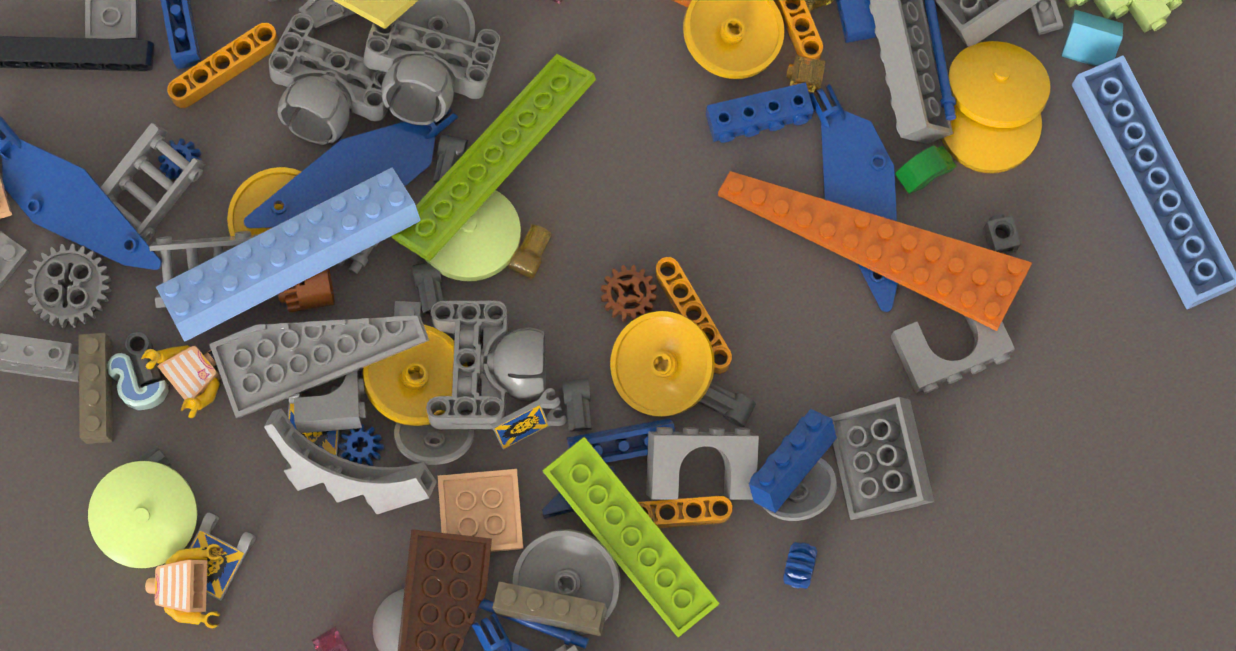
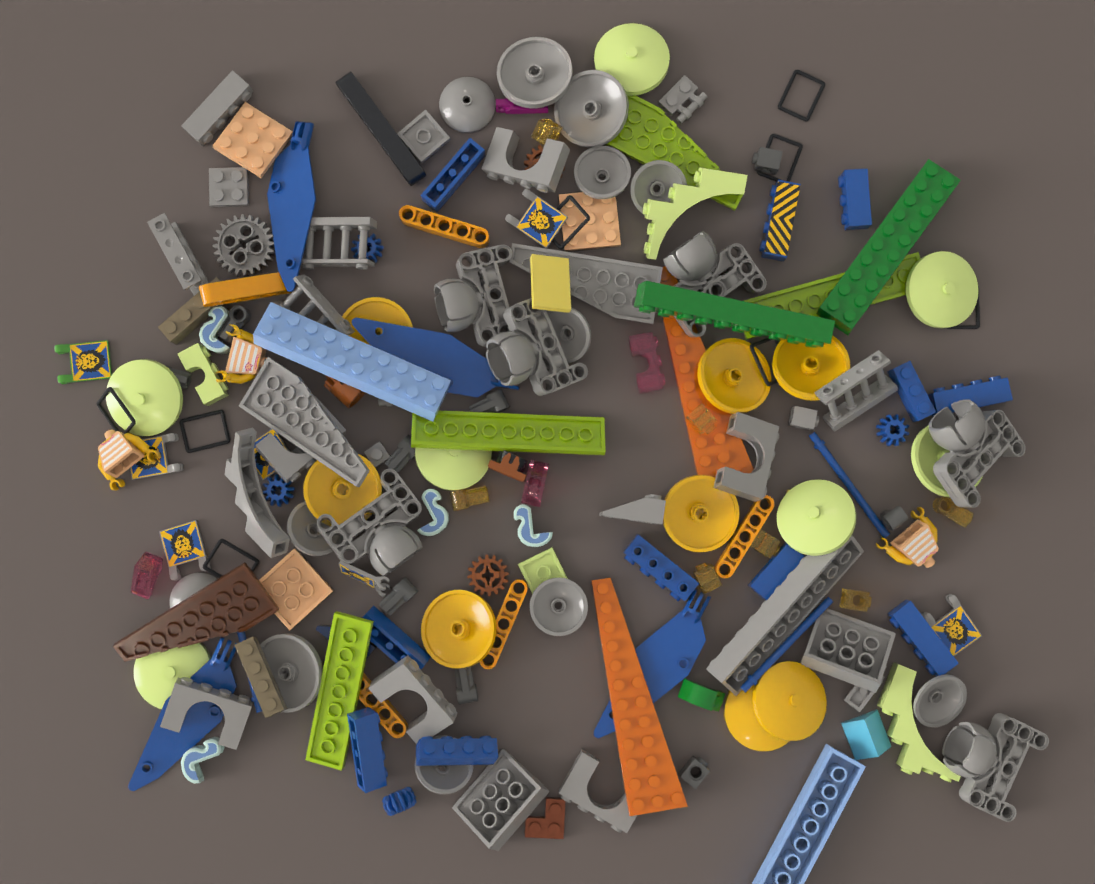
camera: 50 degrees right, 10 degrees up
(50, 550) = (88, 361): none -> flag
(117, 313) = (242, 289): none -> light orange beam
(129, 540) = (110, 389): none -> black piece
(148, 426) = (197, 358): none -> yellowish green arch
(214, 505) = (202, 416): none -> black piece
(338, 599) = (183, 545): none -> flag
(371, 562) = (233, 547): none -> black piece
(519, 295) = (437, 512): none -> animal
(531, 182) = (509, 465): none -> dark orange piece
(569, 172) = (534, 483): none -> clear pink arch
(611, 218) = (525, 530): none -> animal
(671, 235) = (541, 568): none -> yellowish green tile
(684, 80) = (643, 510): none -> light grey slope
(718, 554) = (367, 749): none -> blue brick
(721, 226) = (562, 620): none -> light grey dish
(947, 425) = (549, 826): none -> copper plate

